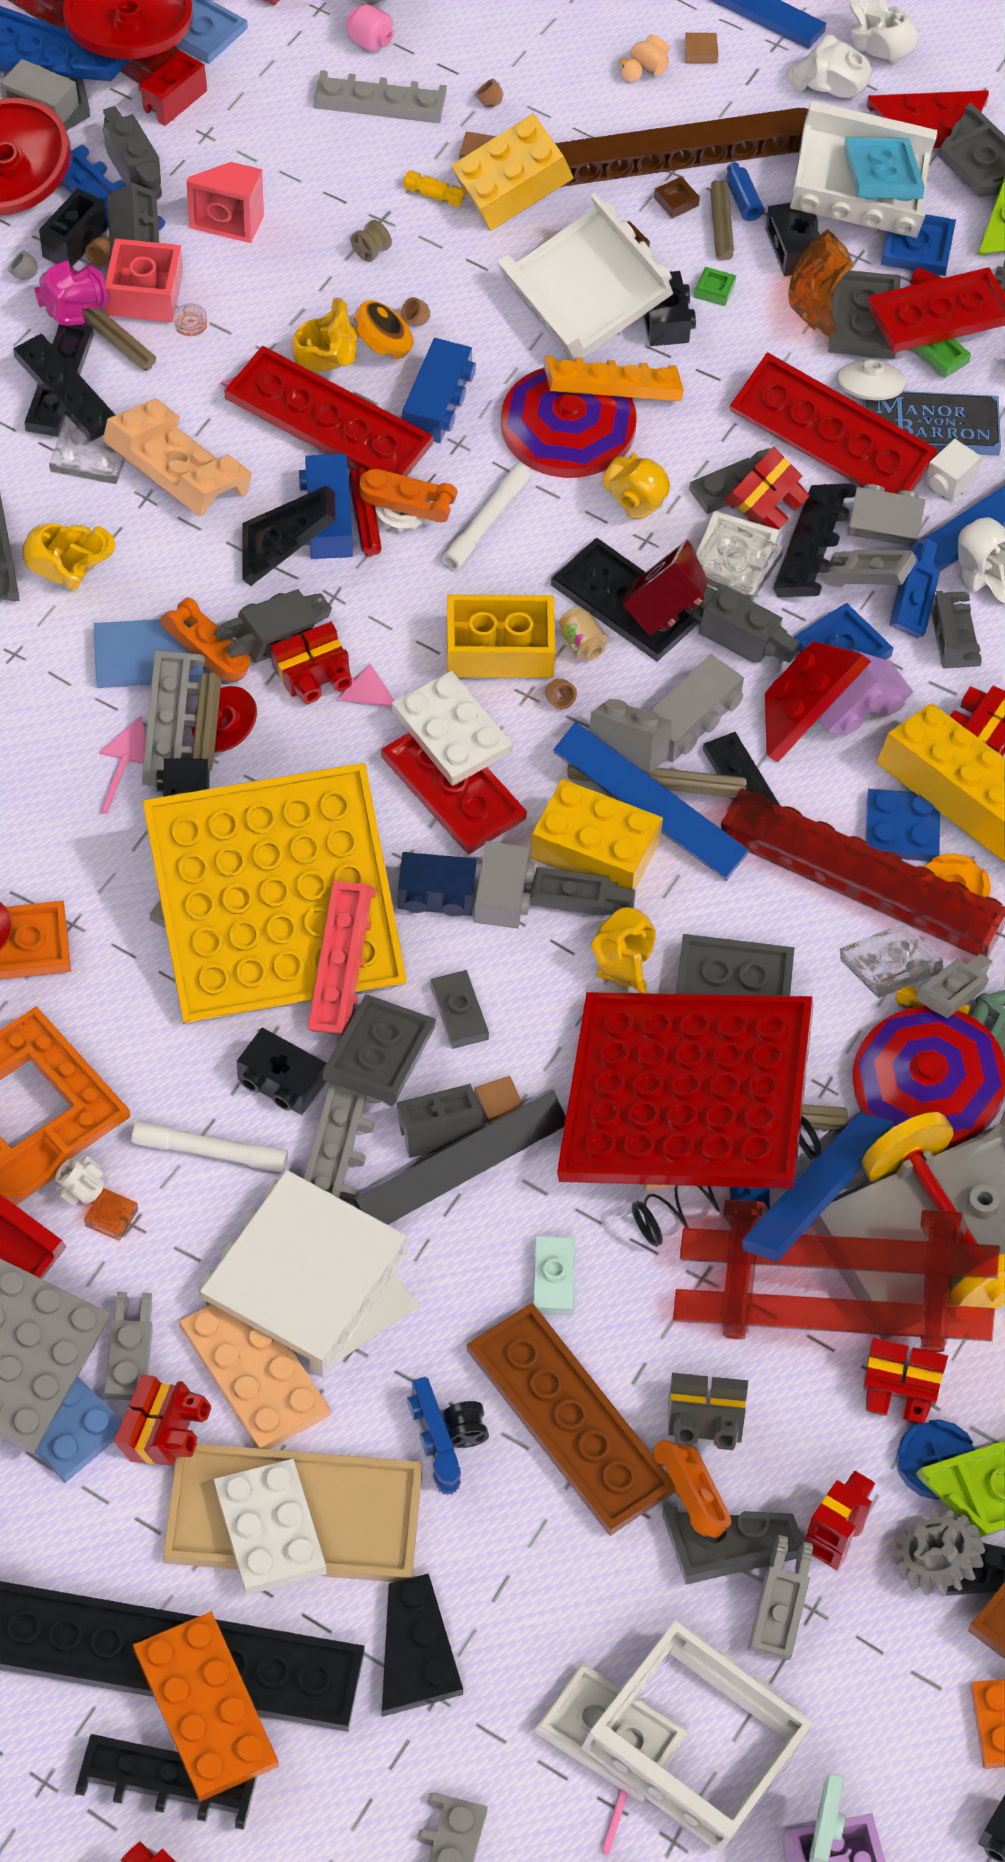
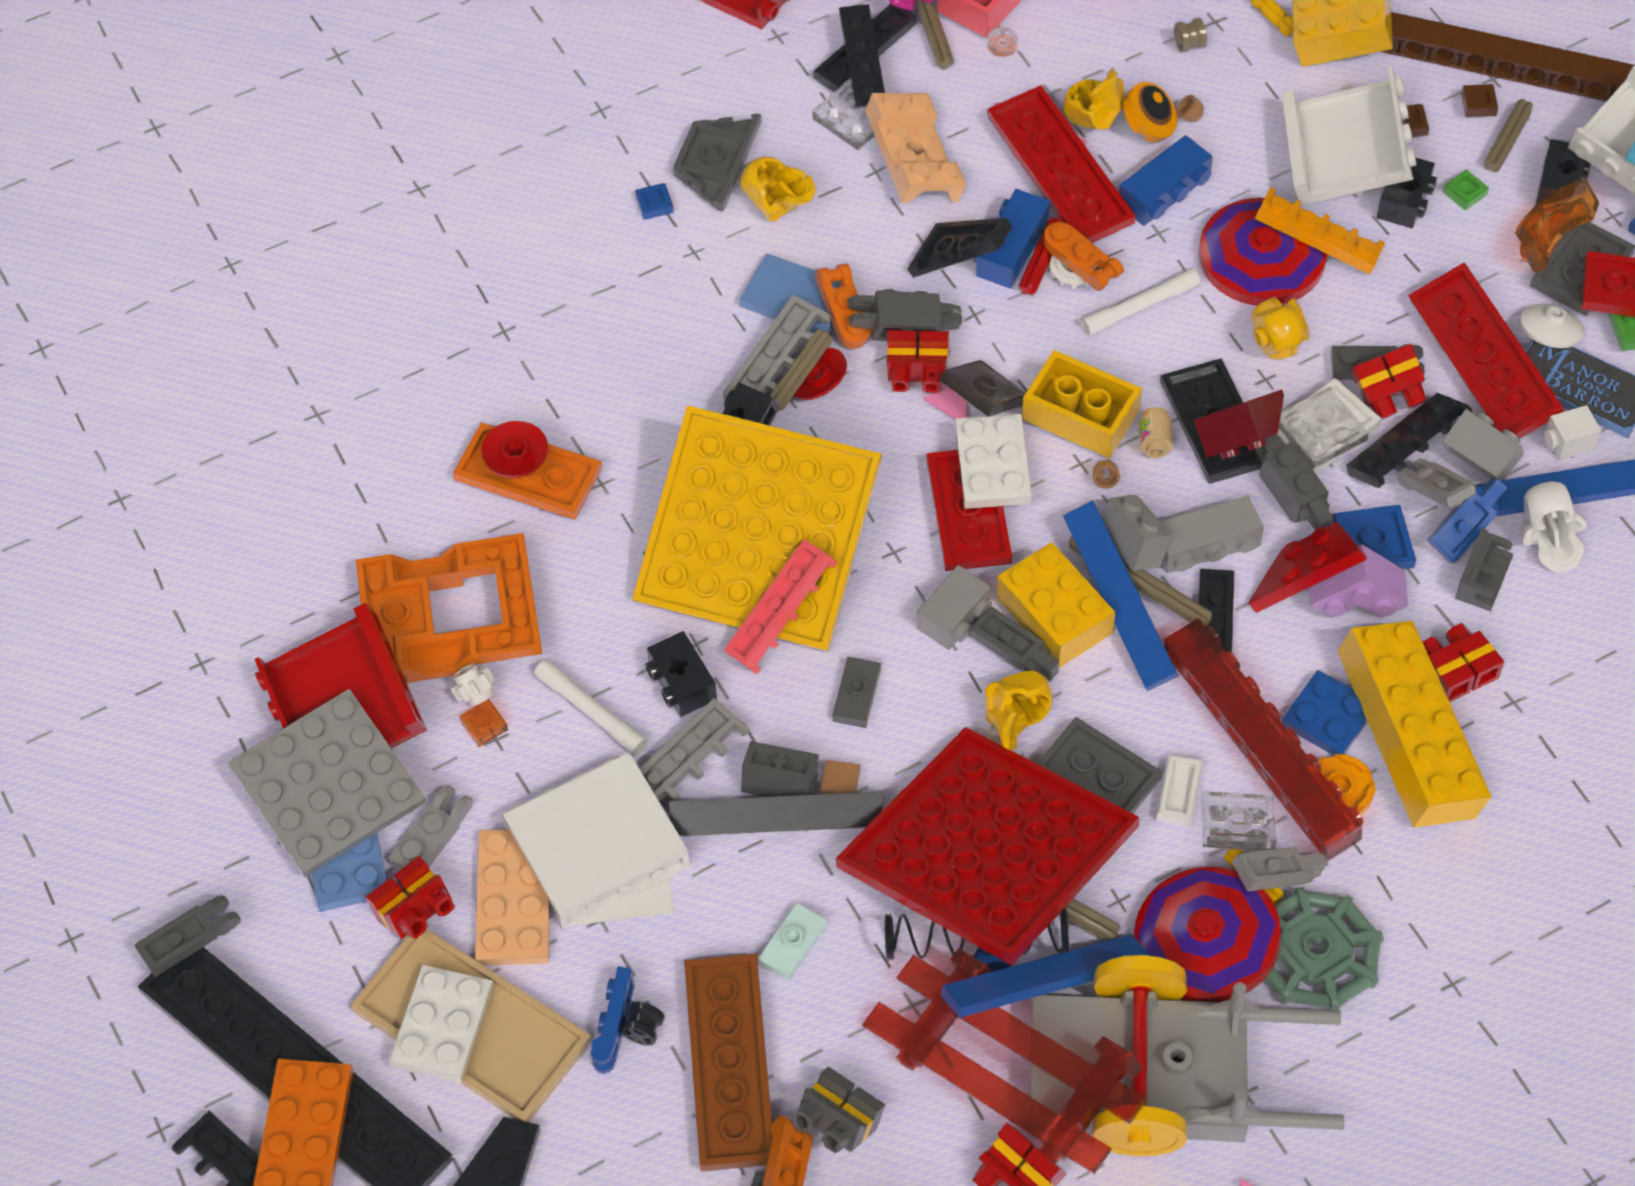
camera: 35 degrees right, 0 degrees up
(127, 747) = (728, 363): bright pink piece -> none
(379, 1049) = (766, 692): dark grey plate -> none
(396, 661) = (983, 387): none -> clear smoke plate
(436, 884) = (899, 581): dark blue brick -> none
(744, 192) = (1542, 119): blue cylinder -> none
(816, 958) = (1179, 790): none -> white tile

